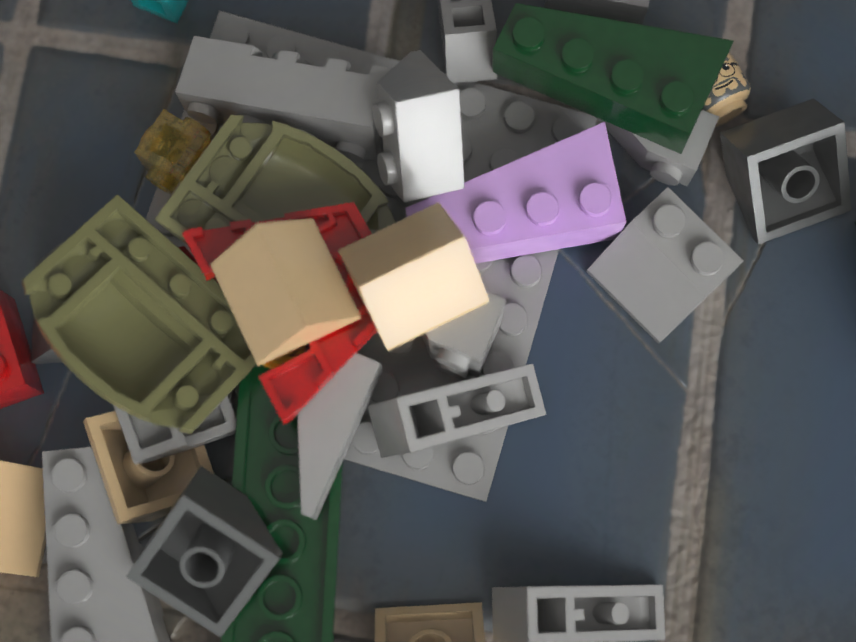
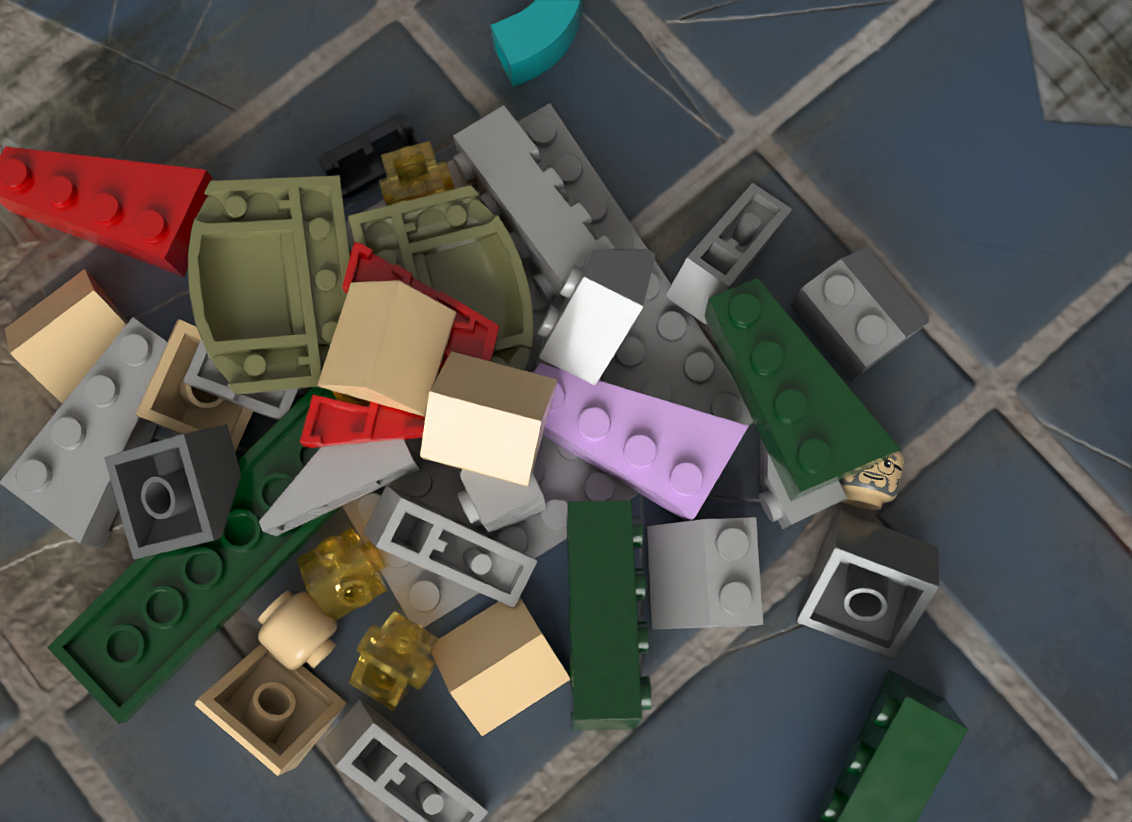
camera: 40 degrees right, 0 degrees up
(111, 164) = (360, 158): none -> black hinge
(393, 503) = (343, 573): none -> clear yellow brick
(397, 578) = (297, 630): none -> tan head
(493, 533) = (393, 660): none -> clear yellow brick
(570, 467) = (498, 664): none -> tan slope
(623, 358) = (604, 616): none -> dark green wedge

